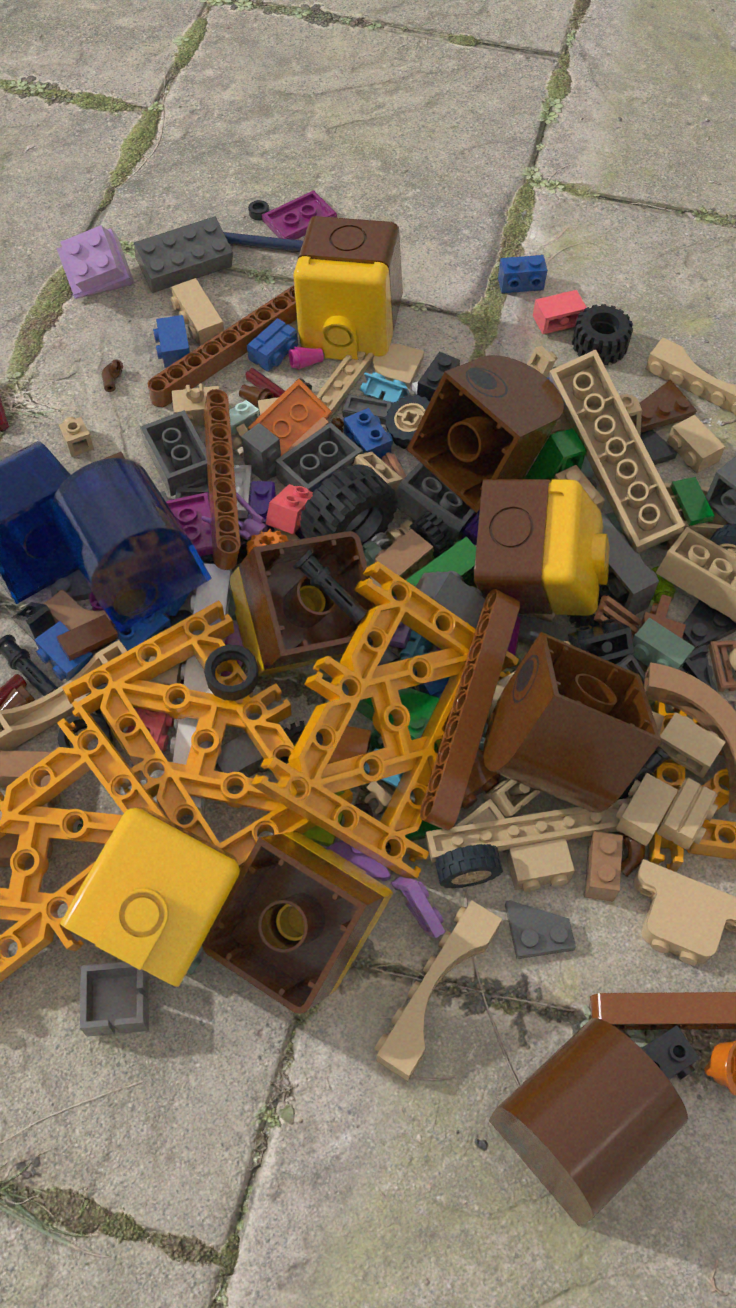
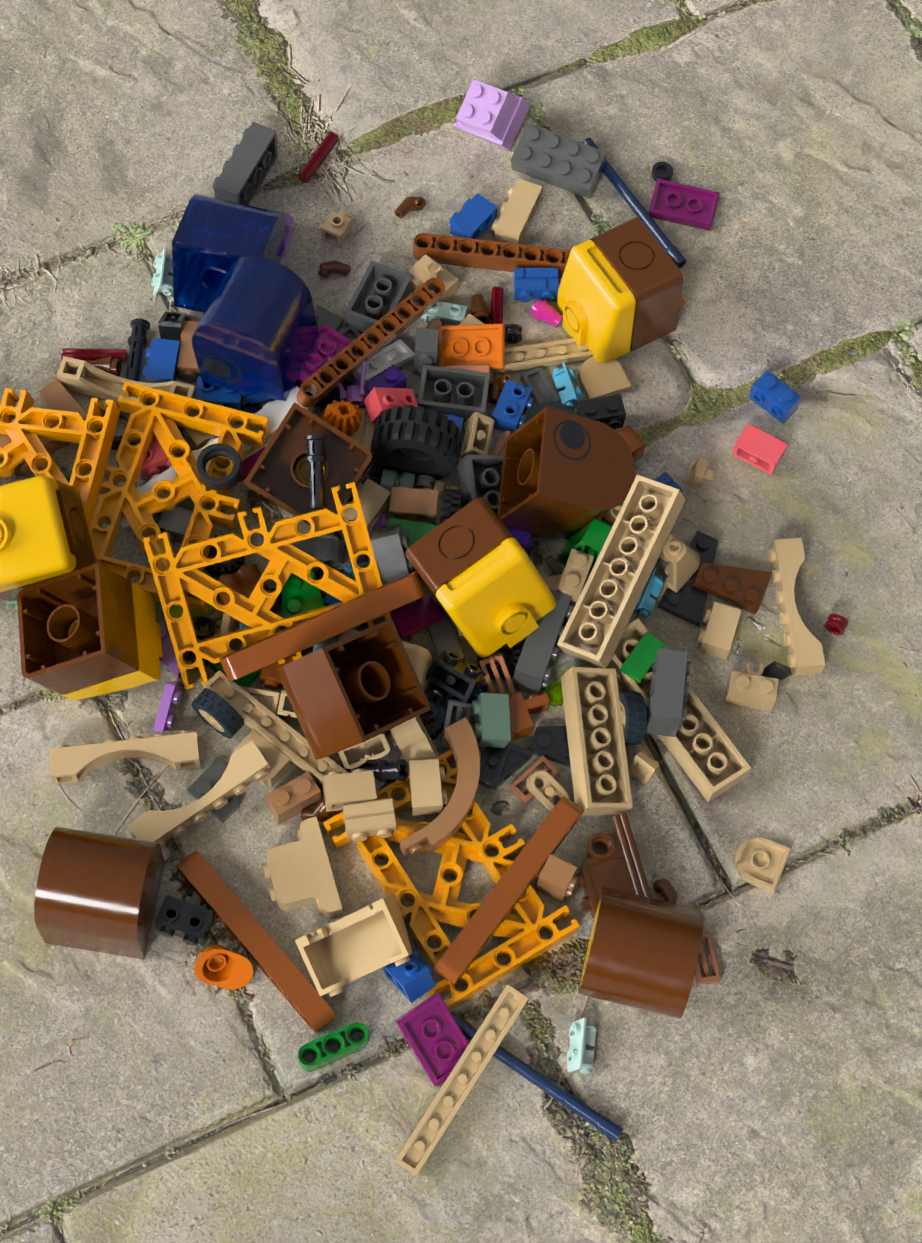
camera: 45 degrees right, 5 degrees up
(87, 637) = (178, 366): reddish brown tile -> none
(541, 1011) = (243, 768): none -> tan arch
(603, 330) = (767, 478): black tyre -> none

